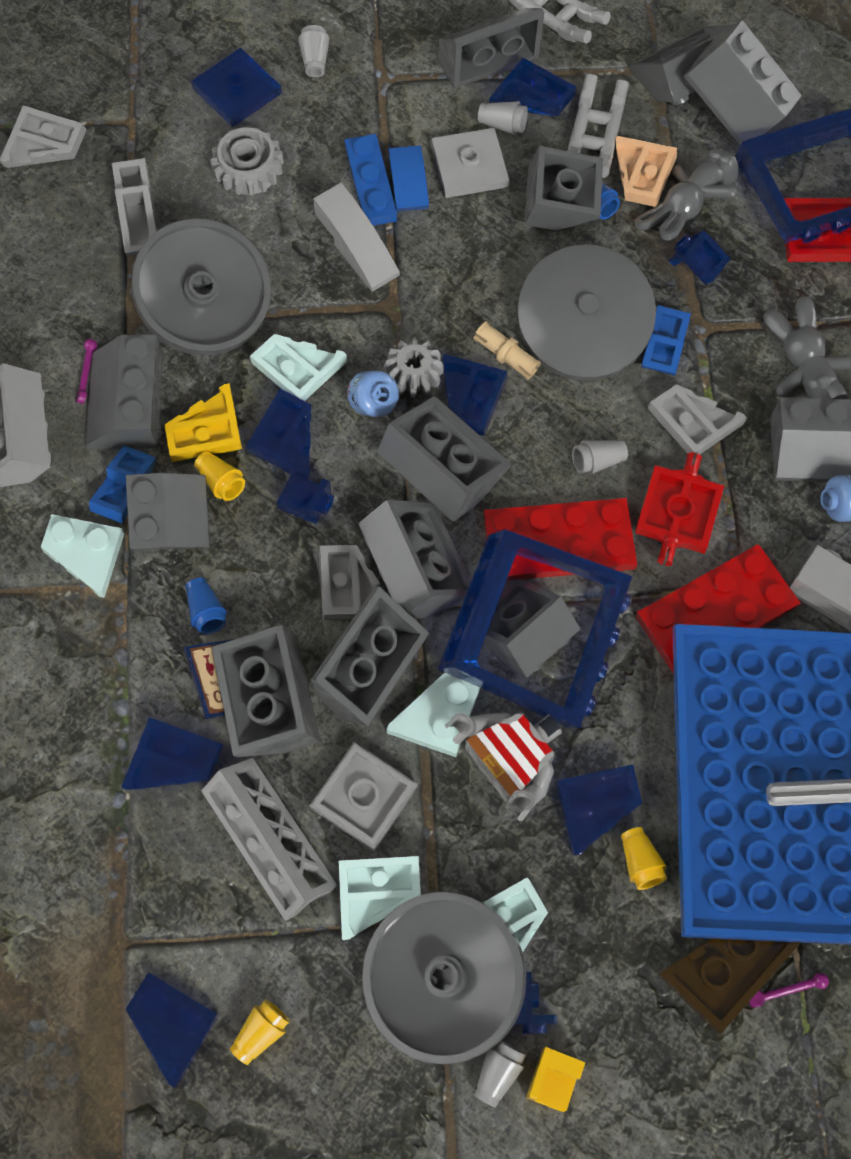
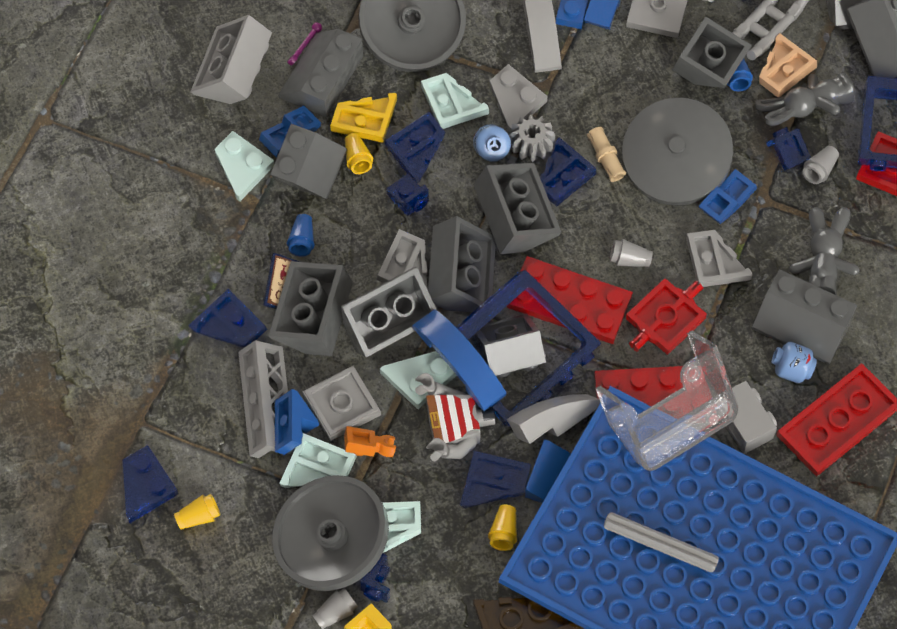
camera: 30 degrees right, 5 degrees down
(316, 851) = (291, 421): none -> blue slope
(366, 328) = (515, 95): none -> light grey wing
(422, 835) = (366, 443): none -> orange plate
(485, 672) = (461, 358): none -> blue slope
(624, 691) = (552, 416): none -> light grey slope
(652, 763) = (546, 470): none -> blue slope
(744, 263) = (820, 165): none -> light grey cone
(782, 620) = (680, 419): none -> clear windscreen

